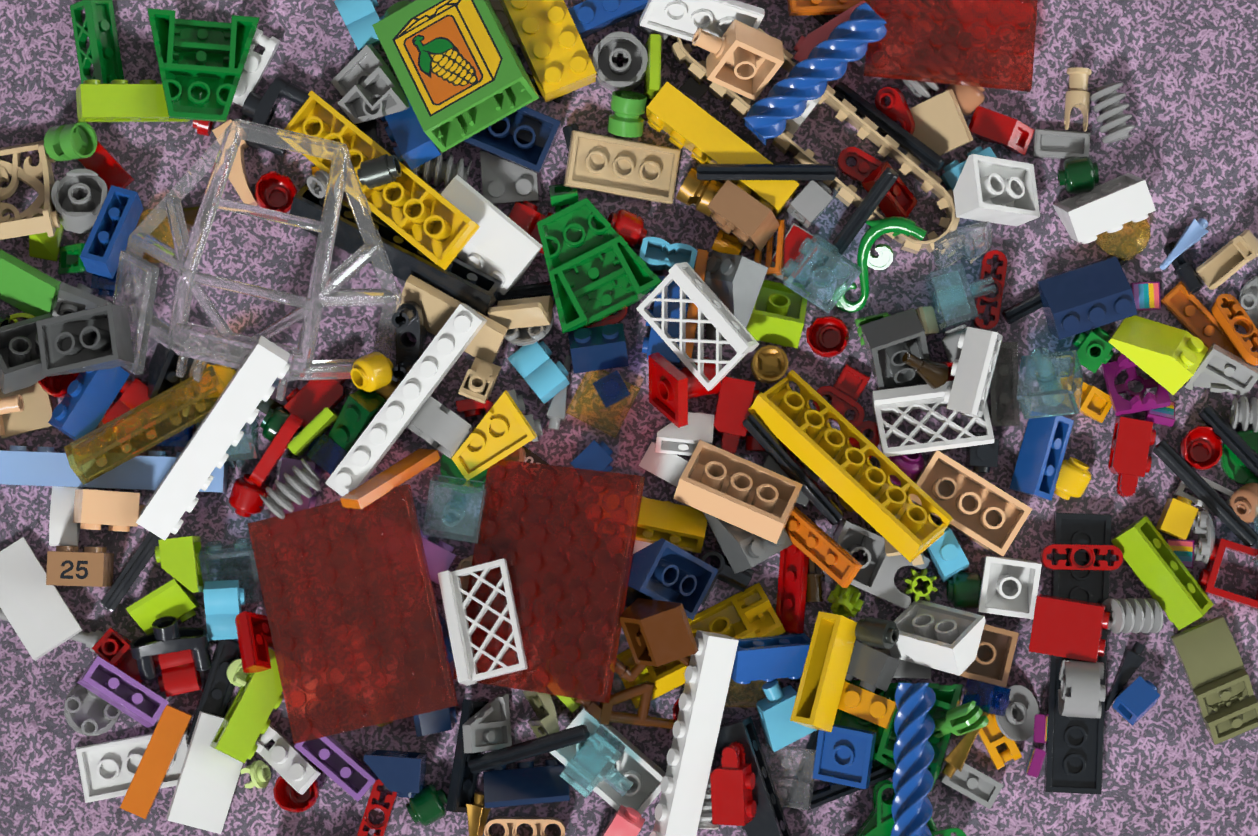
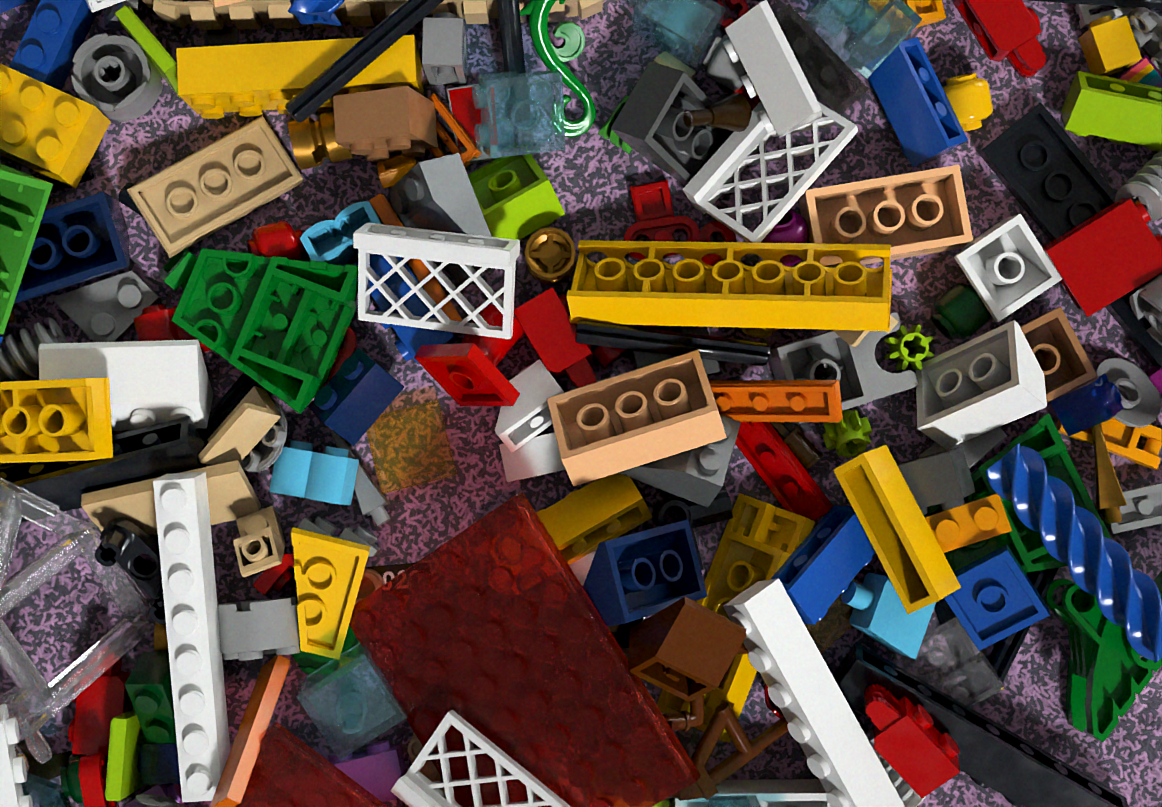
camera: 40 degrees left, 0 degrees up
(372, 372) = (130, 636): yellow head -> none
(594, 457) = (453, 515): blue brick -> none
(611, 389) = (407, 428): clear blue brick -> none
(627, 111) = (173, 128): bright green wheel -> none
(827, 336) = (586, 174): red hair -> none
(877, 632) = (914, 437): pearl dark grey brick -> none
(947, 556) = (913, 291): medium azure torso -> none
(961, 720) = (1087, 450): bright green arm -> none
(982, 456) = (856, 158): black brick -> none
(1102, 550) = (1066, 172): red beam -> none

